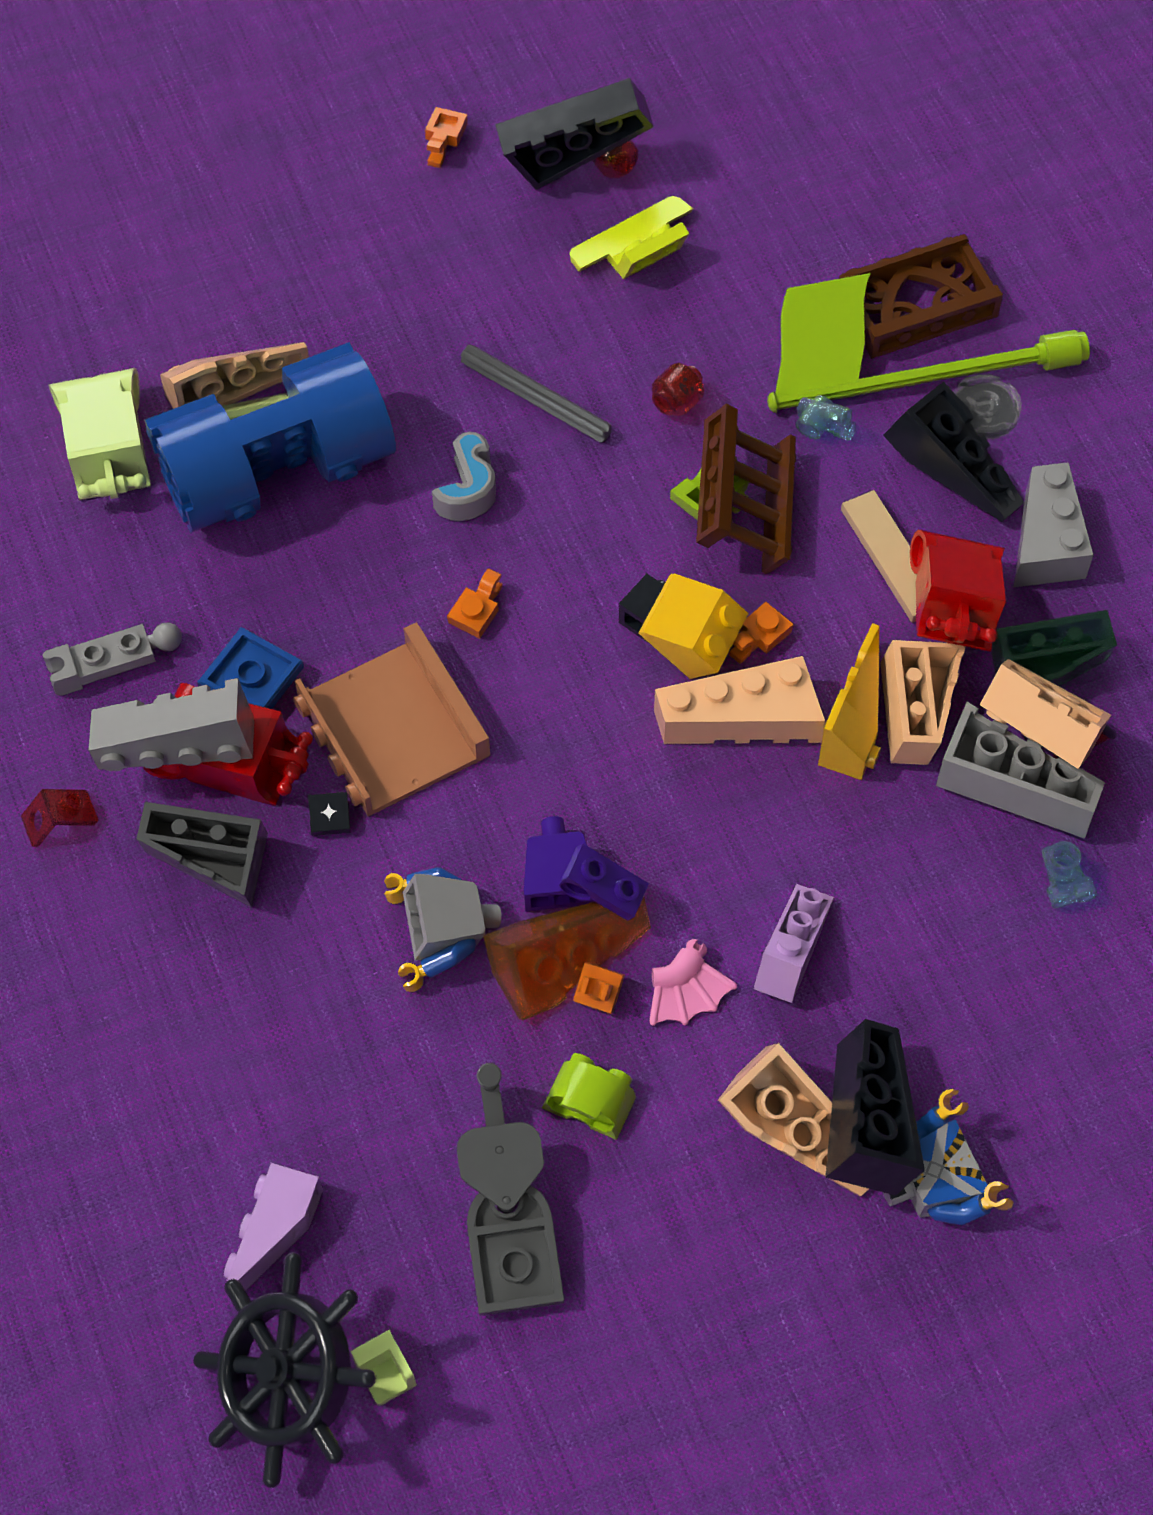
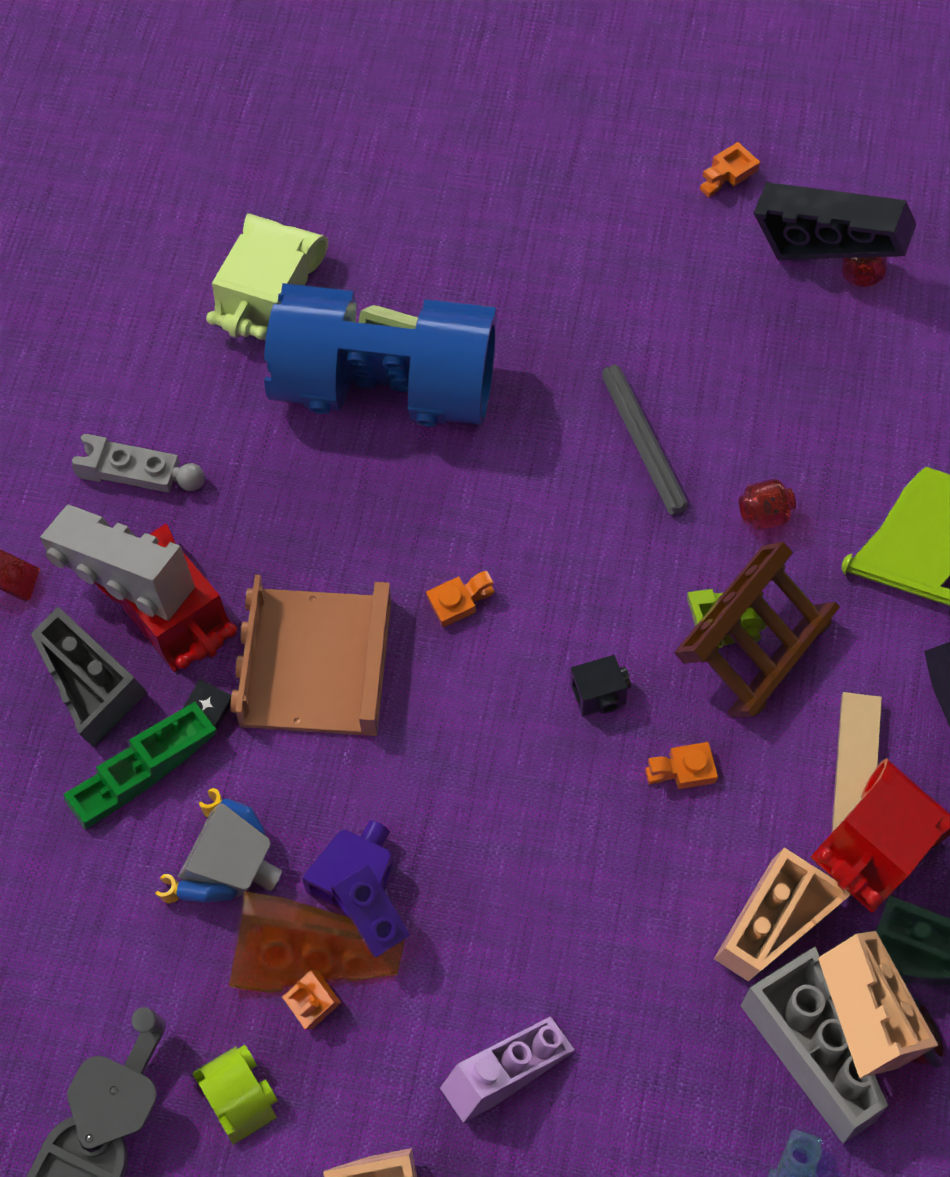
camera: 35 degrees right, 0 degrees up
(230, 375) = (394, 284): light nougat wedge -> none
(258, 664) = (232, 548): blue plate -> none
(309, 895) = (141, 765): none -> green slope
(478, 484) = (535, 493): light grey animal -> none
(636, 240) = (831, 350): neon yellow plate -> none
(687, 986) = (388, 1048): bright pink arm -> none
(693, 625) = (621, 725): yellow slope -> none
(742, 706) = (615, 824): light nougat wedge -> none
(822, 416) = (882, 600): clear light blue plate -> none
(853, 721) = (700, 900): yellow wedge -> none

